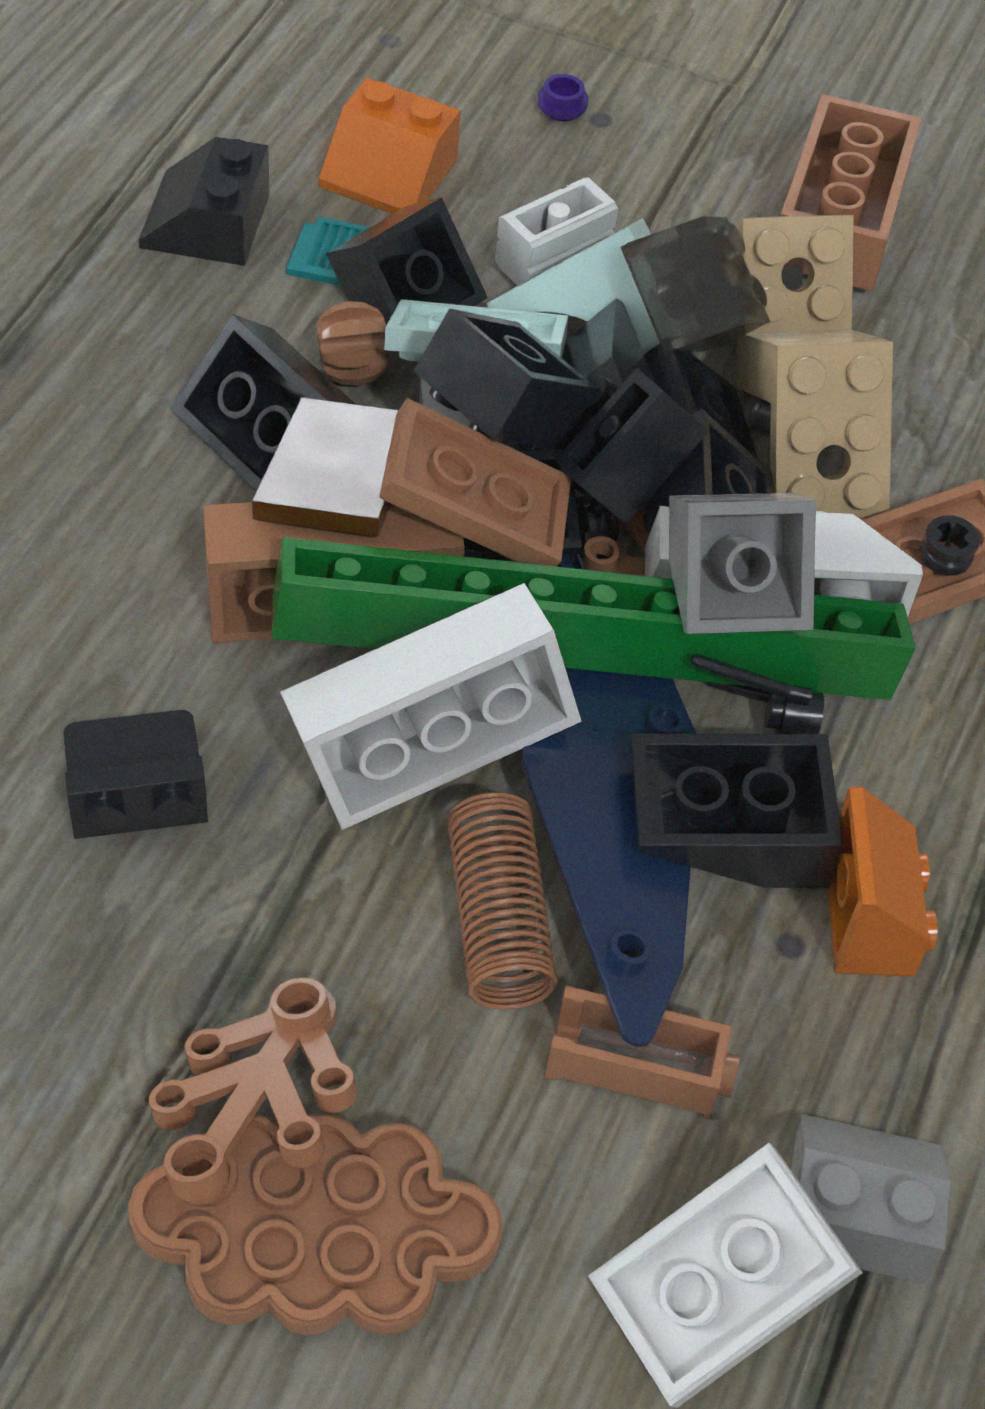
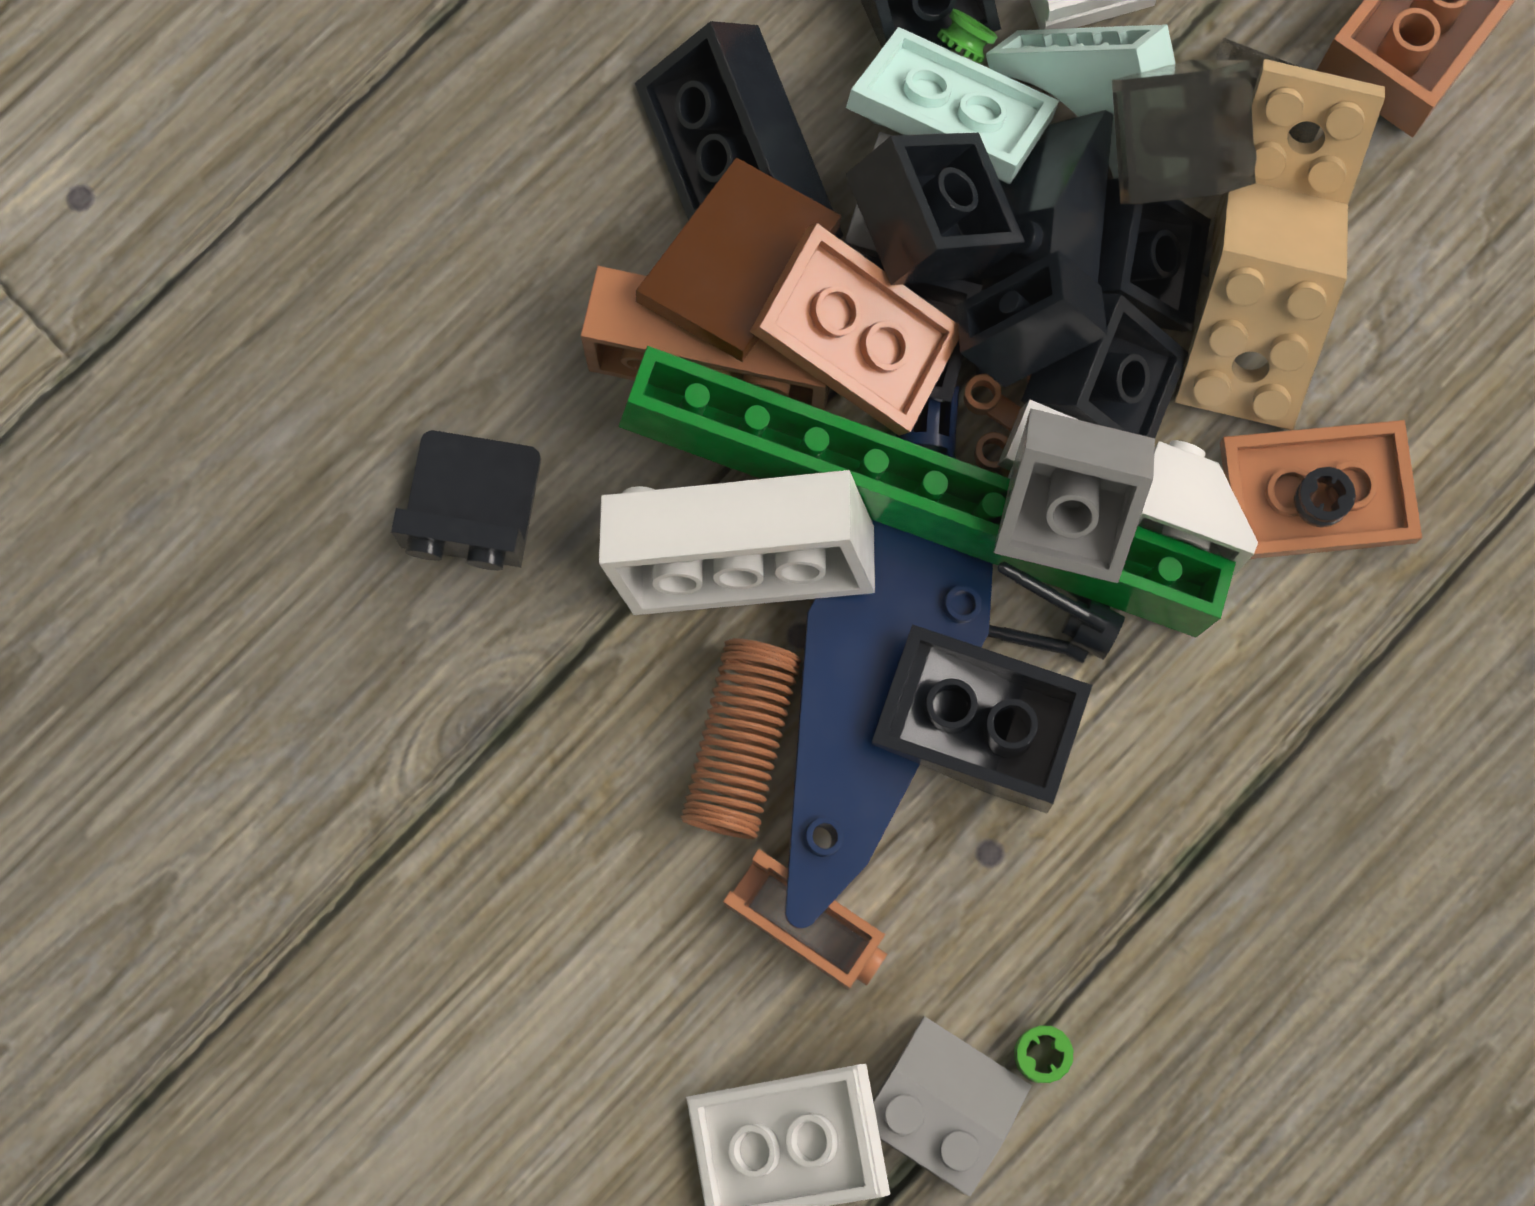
camera: 25 degrees right, 25 degrees up
(297, 1015) = (473, 841): nougat plant -> none
(326, 1240) = (485, 976): nougat plate -> none
(352, 343) = (830, 63): nougat piece -> none
(464, 290) = (967, 34): none -> bright green bush
(879, 892) = (1081, 843): orange slope -> none
(950, 1096) = (1060, 1044): none -> bright green bush

